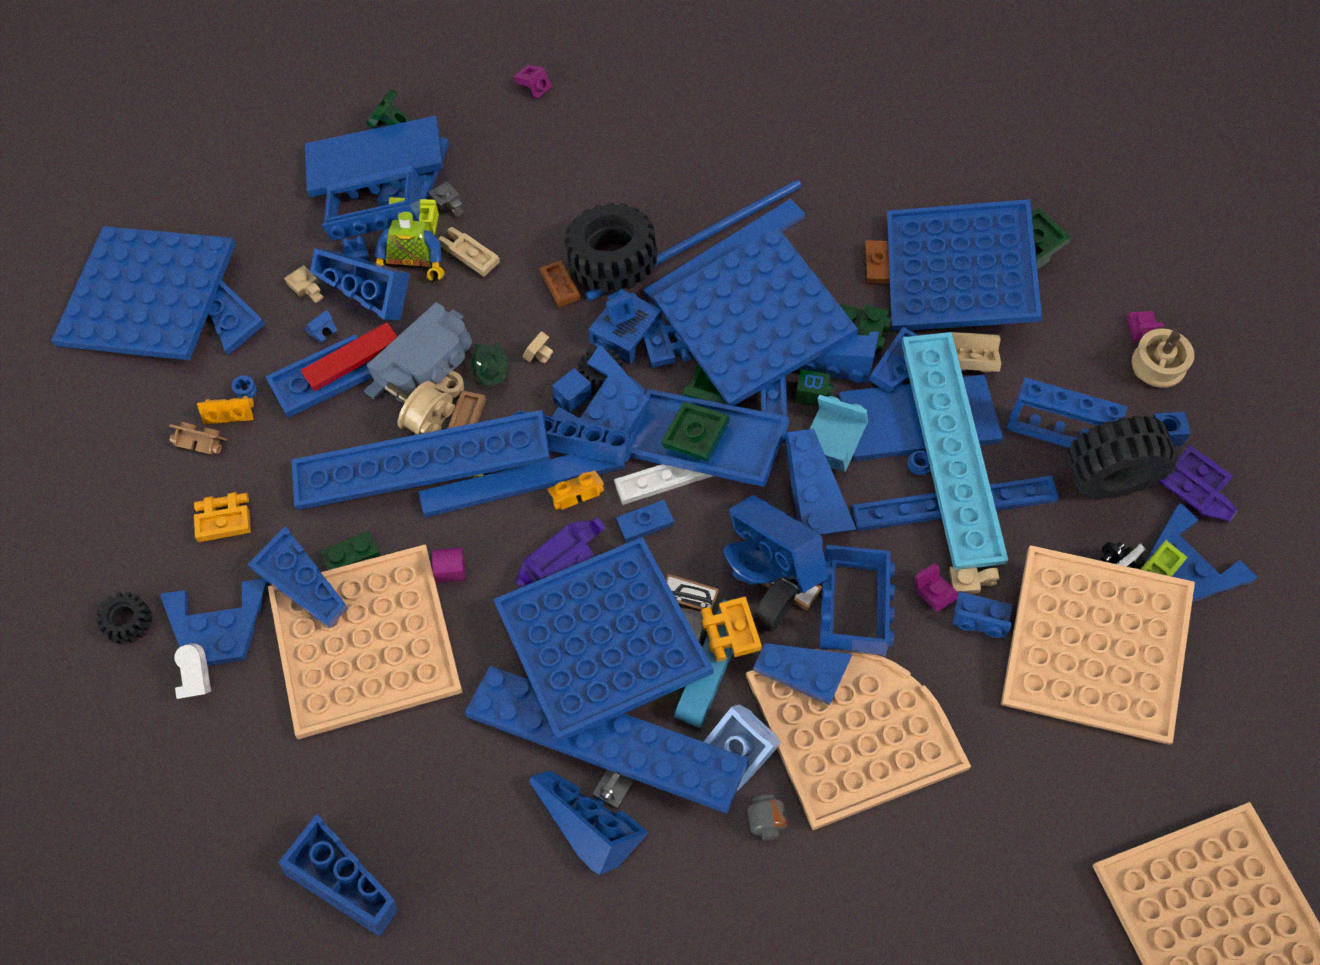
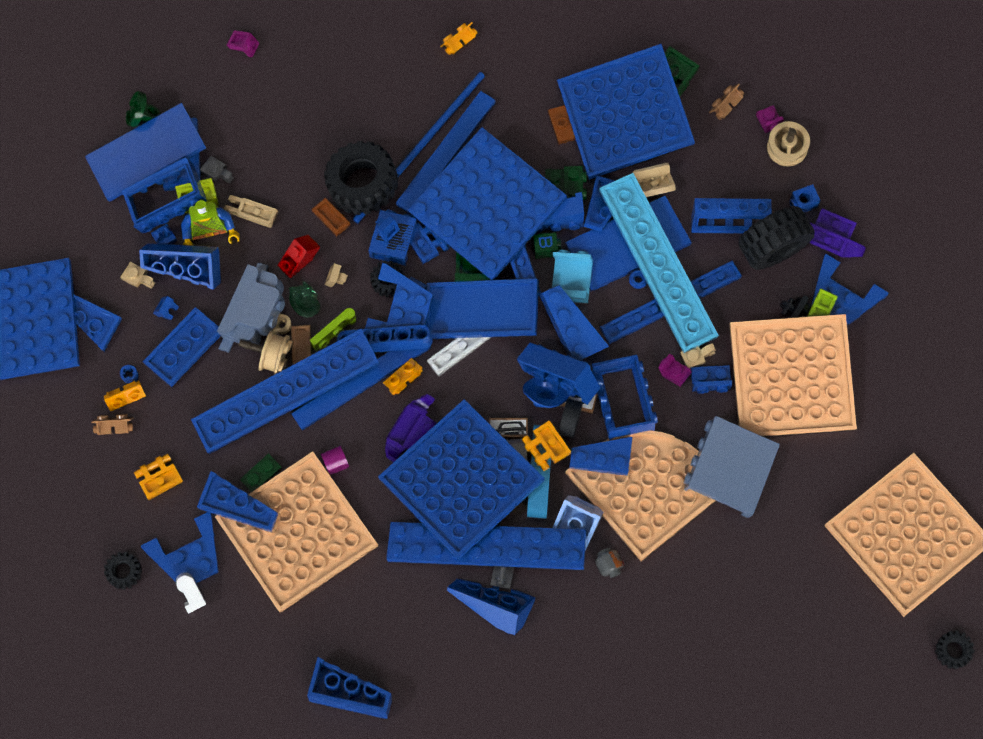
camera: 15 degrees left, 10 degrees up
(348, 357) = (200, 327): red tile -> none
(503, 312) = (298, 255): none -> red slope
(526, 401) = (333, 329): none -> lime plate
(571, 391) = (372, 302): blue brick -> none
(645, 521) = (459, 384): blue plate -> none
(695, 431) = (474, 308): dark green plate -> none
(775, 139) = (453, 43): none -> light orange hinge
(980, 737) = (731, 465): none -> sand blue panel
(1102, 286) = (731, 95): none -> medium nougat hinge

